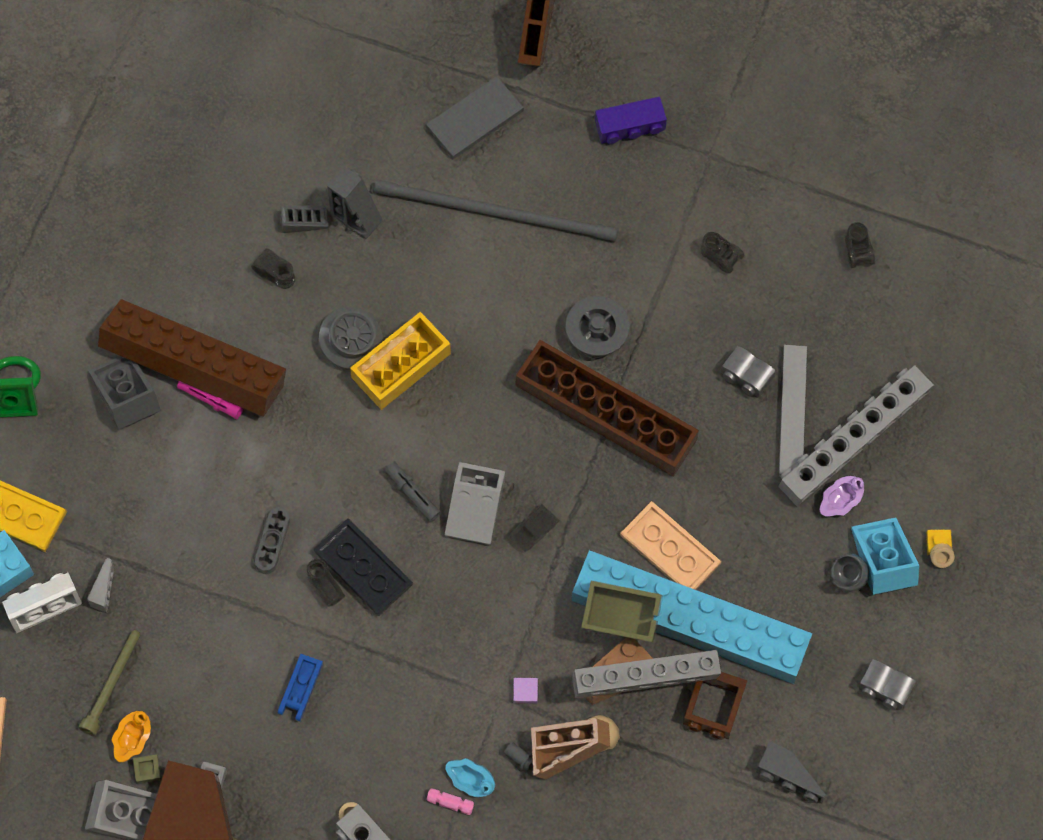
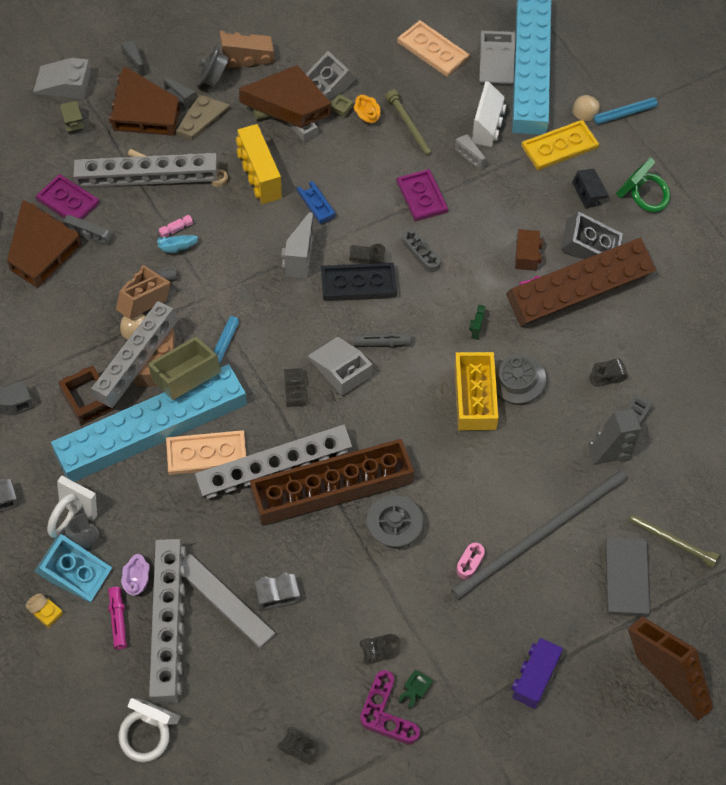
camera: 130 degrees right, 10 degrees down
(54, 438) = (589, 188): none -> black hinge
(187, 439) = (527, 250): none -> reddish brown brick
(198, 595) = (422, 195): none -> magenta tile
(307, 774) = (258, 164): none -> yellow brick
(320, 419) = (475, 325): none -> dark green plate
(379, 643) = (298, 249): none -> light grey slope
(400, 65) = (709, 558): none -> olive piece
(525, 690) = (199, 308): lavender tile -> none
(545, 633) = (226, 337): none -> dark azure axle
(573, 246) = (466, 558): none -> bright pink beam
(631, 476) = (337, 435): none -> light grey brick
(726, 201) = (416, 686): none -> dark green plate
(776, 210) = (381, 718): none -> magenta beam
(830, 602) = (76, 500): none -> white tile
(884, 487) = (117, 618): none -> dark pink pin
(943, 370) = (153, 715): none -> white tile

